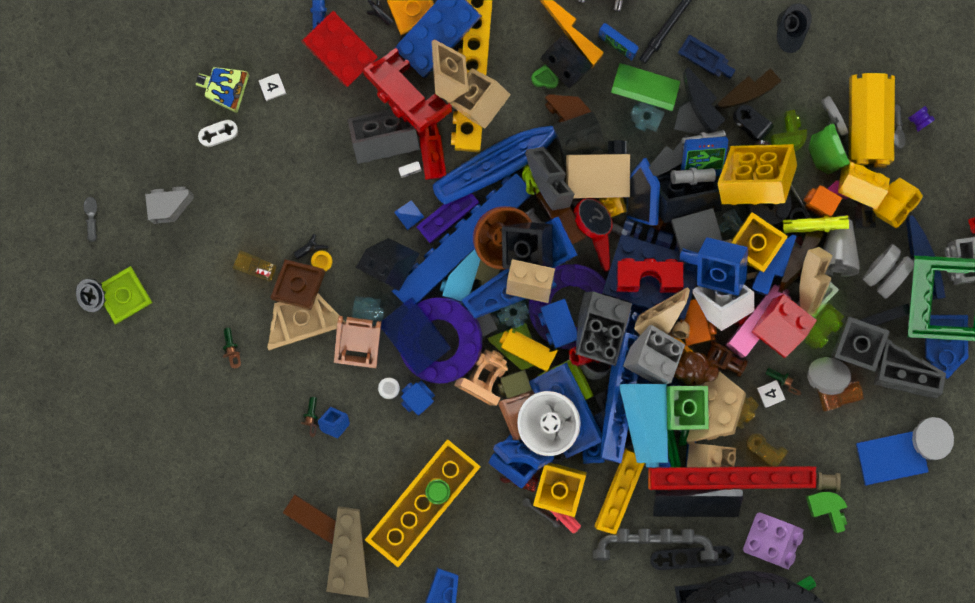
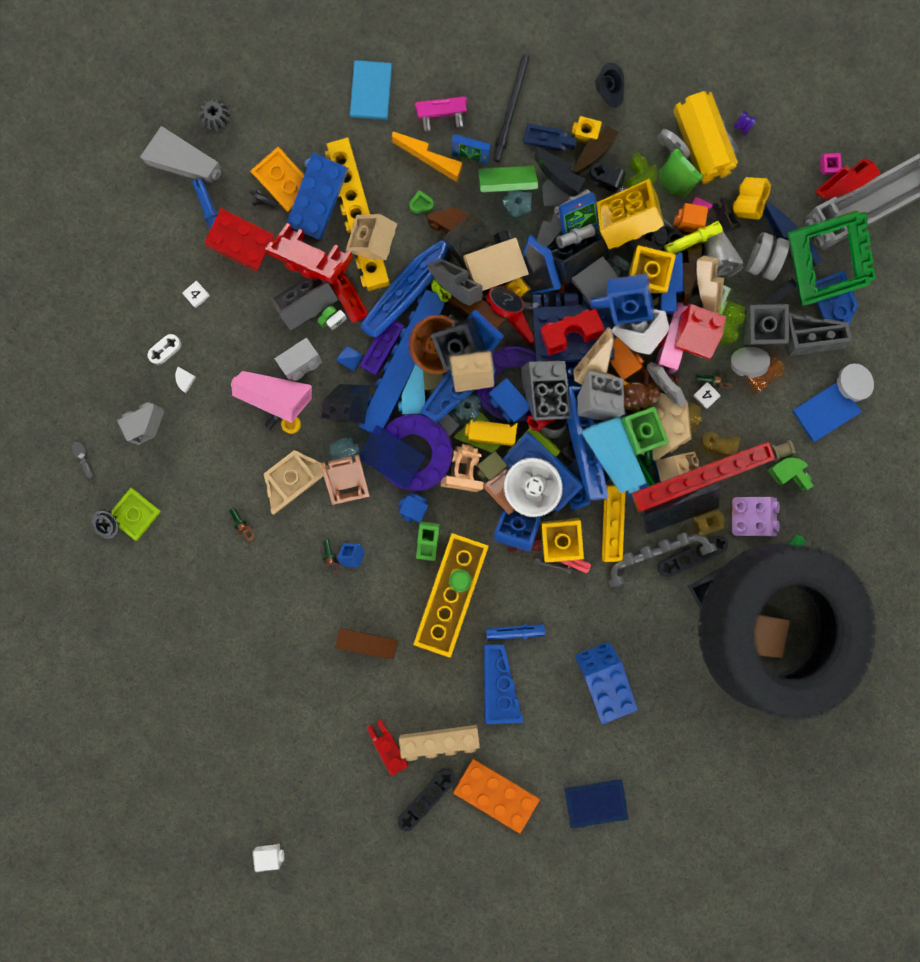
camera: 20 degrees left, 0 degrees up
(224, 87) = (155, 308): torso -> none
(227, 172) = (184, 379): none -> white tile
(254, 266) = (235, 448): clear yellow leg -> none
(298, 284) = (277, 450): reddish brown plate -> none
(314, 224) = (272, 394): none -> bright pink slope
(347, 561) = (405, 667): dark tan wing -> none
(354, 198) = (298, 360): none -> light grey brick
(389, 388) = (386, 509): white tile -> none
(401, 161) = (327, 313): none -> bright green tile
(419, 437) = (427, 541): none -> bright green brick
(448, 72) = (337, 223): tan slope -> none
(476, 567) = (516, 632): none -> blue pin
(516, 451) = (516, 521): blue tile -> none
(566, 60) = (433, 182): black brick -> none
(681, 330) = (614, 368): tan hinge -> none
(713, 528) = (717, 522): none -> clear yellow brick
(727, 361) = (672, 391): none -> light grey tile
(759, 64) = (587, 123): none -> yellow brick
(863, 185) = (720, 191): yellow slope -> none

